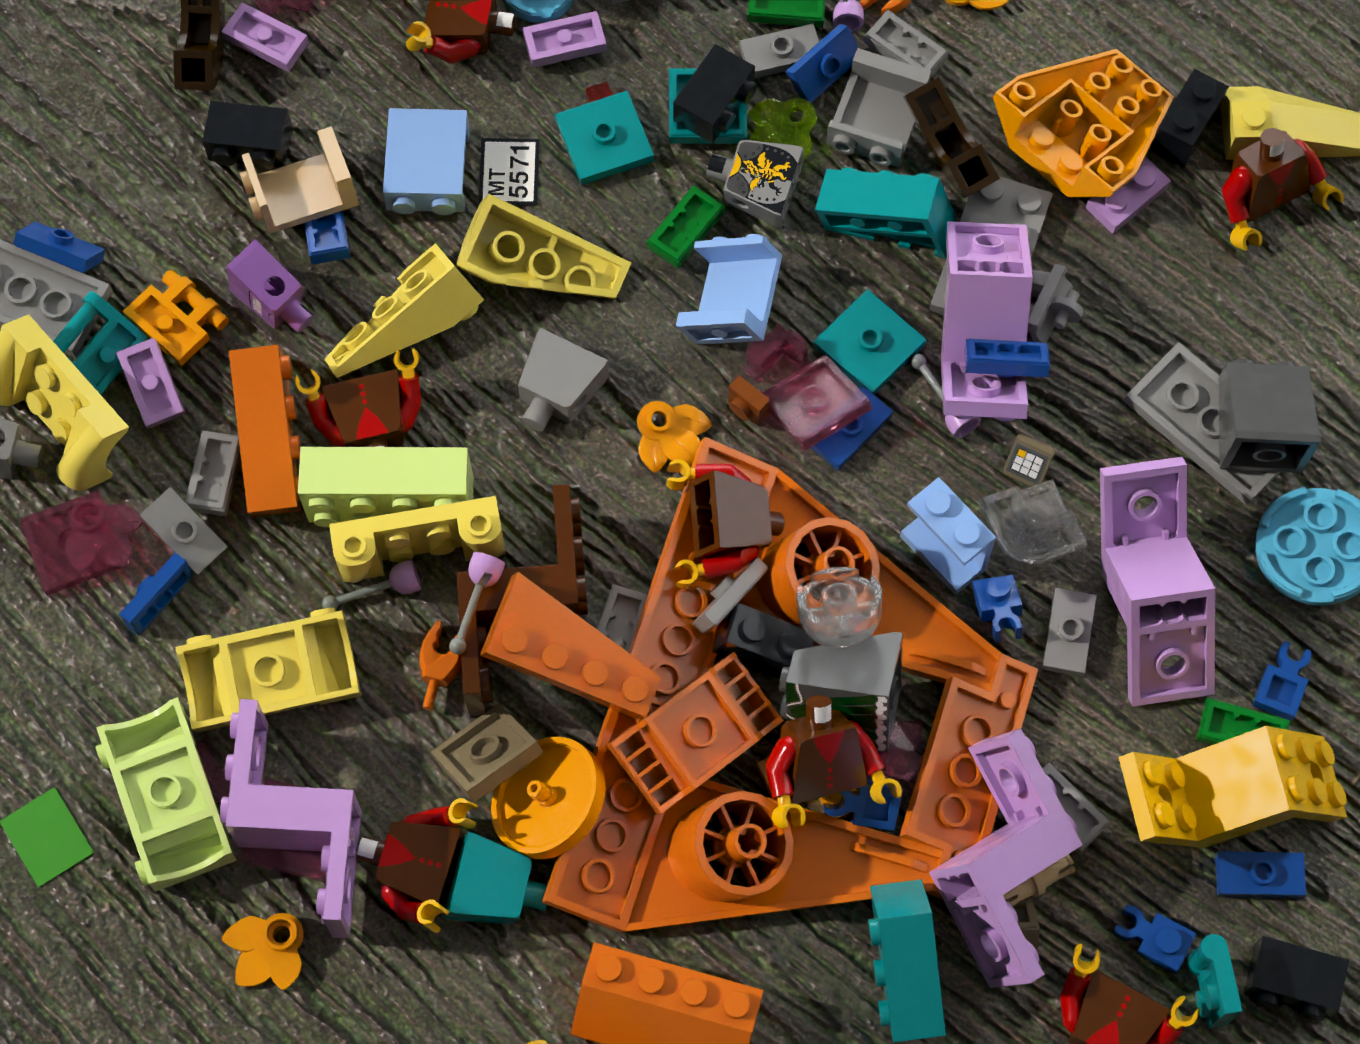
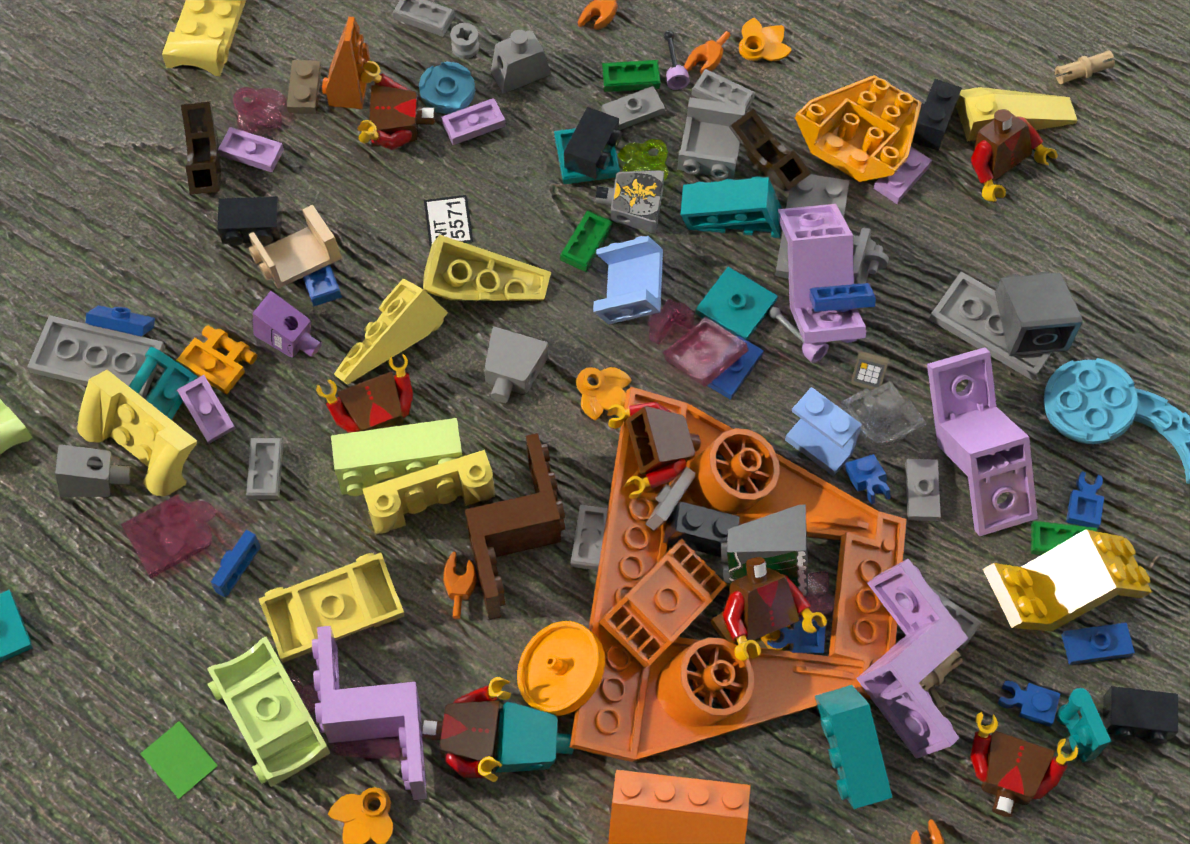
camera: 10 degrees left, 5 degrees down
(183, 530) = (248, 513): light grey plate -> none
(266, 429) = (300, 431): orange wedge -> none
(402, 578) = (420, 524): hinge -> none
(425, 160) = (386, 220): light blue panel -> none
(484, 572) = (486, 505): hinge -> none
(486, 752) = (508, 642): dark tan plate -> none
(561, 648) = (554, 553): orange wedge -> none
(598, 92) = (505, 157): clear red piece -> none
(604, 137) = (514, 187): teal plate -> none
(748, 401) = (656, 358): dark orange plate -> none
(823, 63) = (666, 112): blue plate -> none
(839, 607) = (757, 491): clear cylinder -> none

